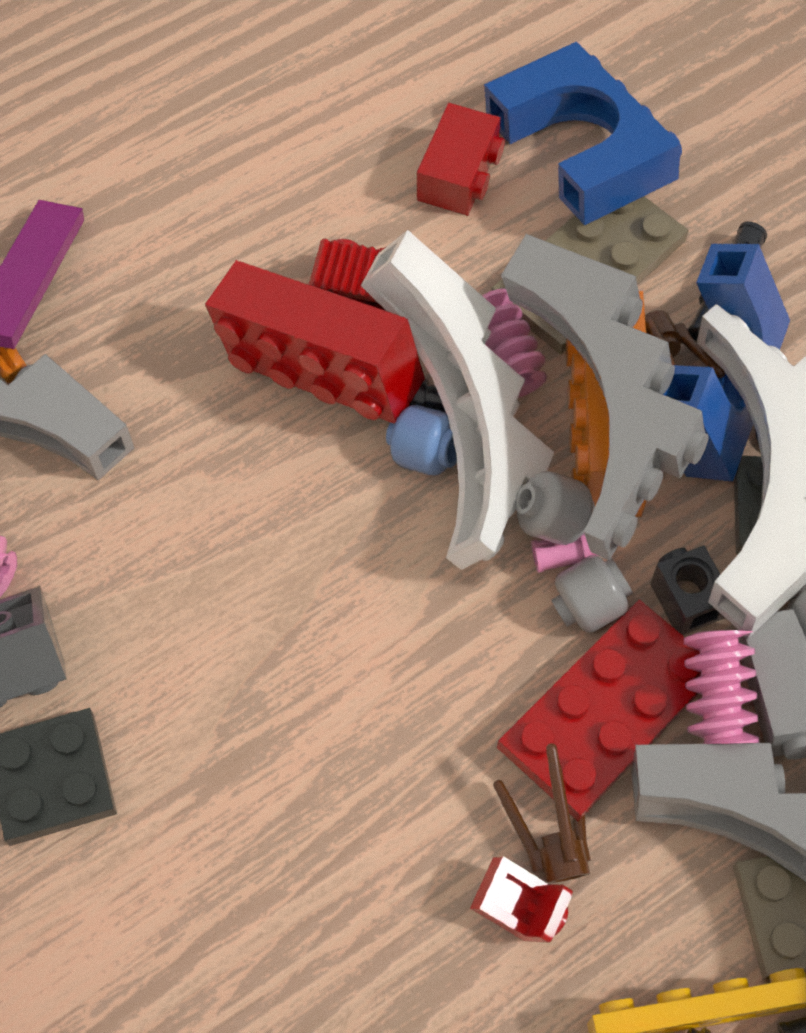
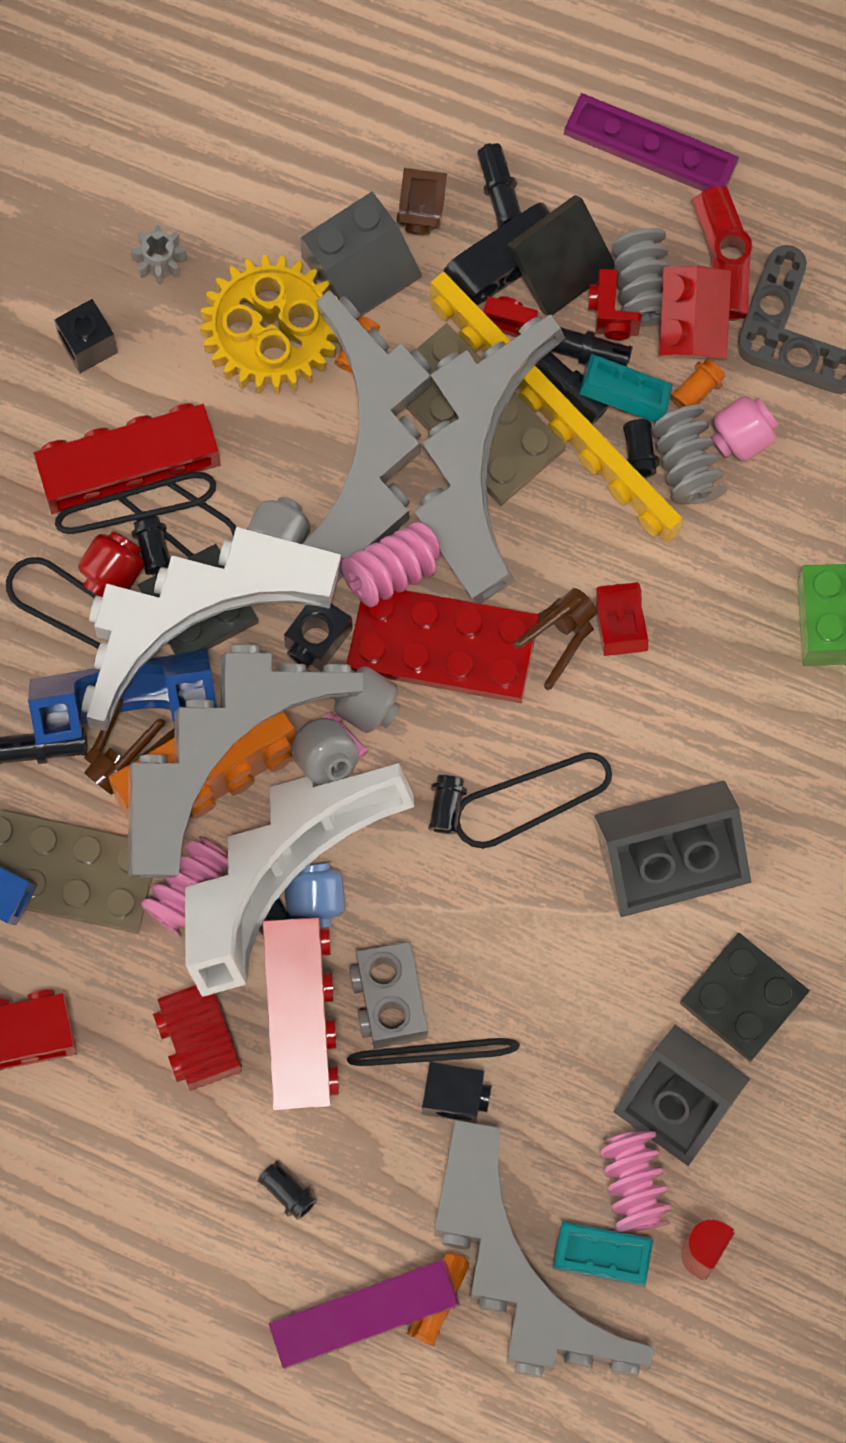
camera: 125 degrees left, 10 degrees up
(157, 452) = (455, 1093): none -> black brick
(174, 280) = (288, 1190): none -> black pin
(218, 468) = (356, 1058): none -> black piece
(244, 797) = (673, 848): none -> dark grey slope
(278, 461) = (400, 994): none -> light grey brick
(417, 707) = (589, 755): none -> black piece
(437, 610) = (446, 804): none -> black pin

